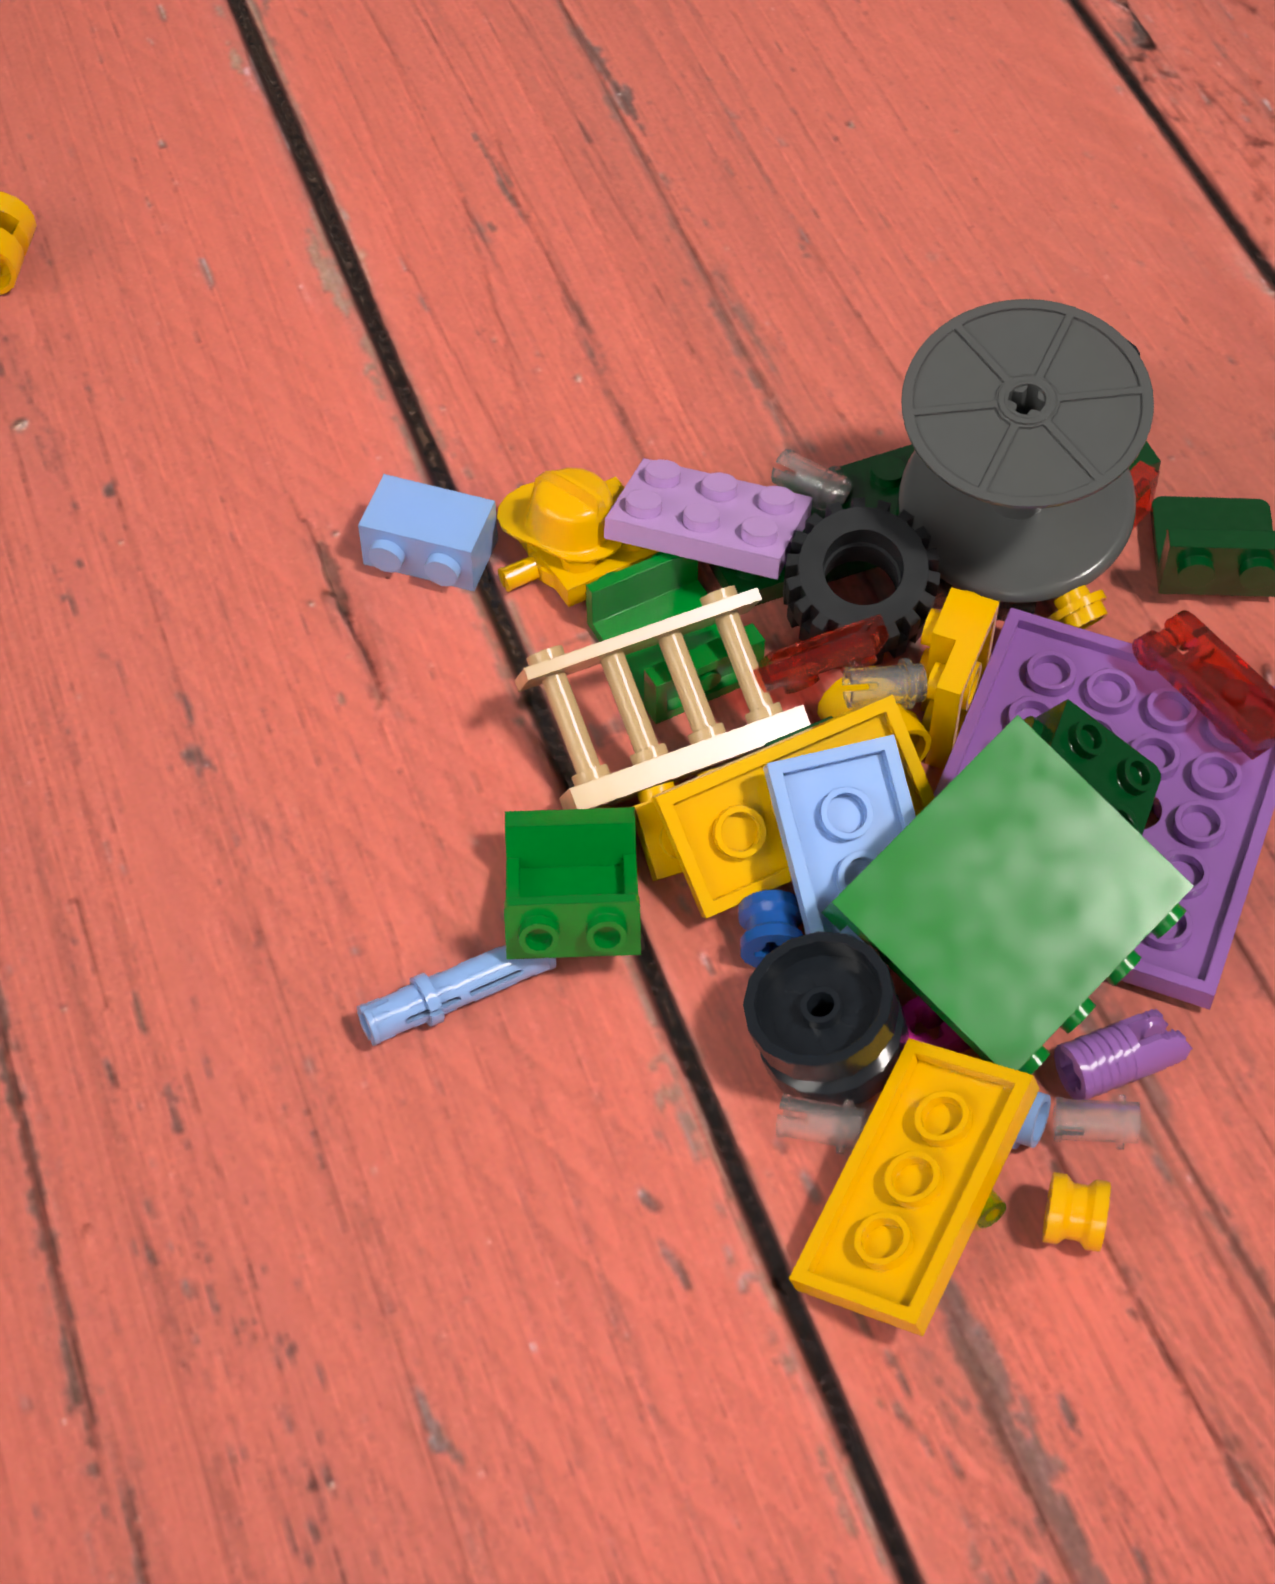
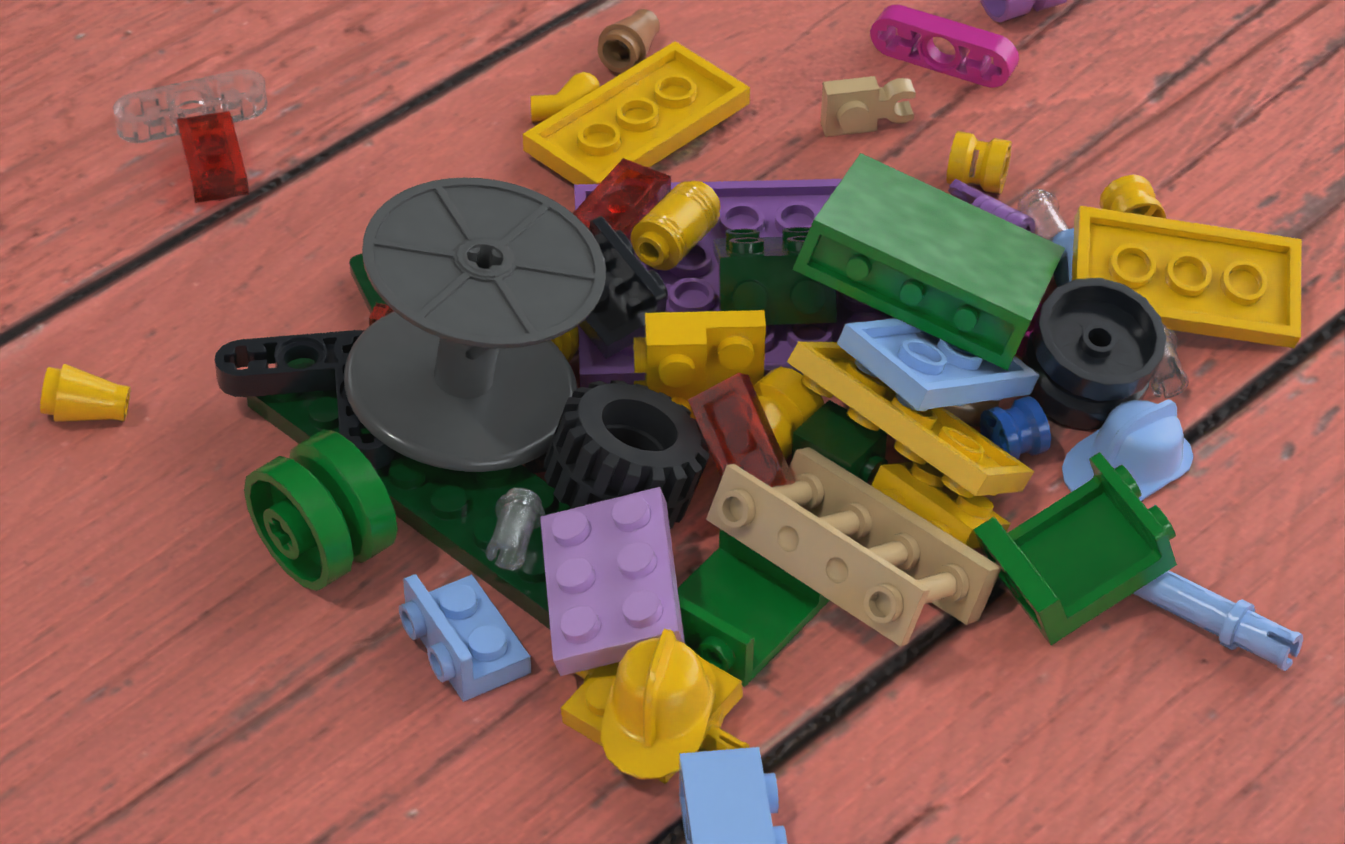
camera: 115 degrees left, 10 degrees down
(702, 1039) = (1142, 439): none -> light blue piece
(734, 435) = (463, 636): none -> light blue bracket
(872, 346) = (320, 509): none -> green wheel
(904, 681) = (770, 383): clear pin -> none
(1088, 627) = (626, 294): none -> black bracket
(1145, 276) = (81, 396): none -> yellow cone
(1182, 731) = (676, 225): none -> yellow head
(1218, 1096) = (991, 162): none -> yellow wheel

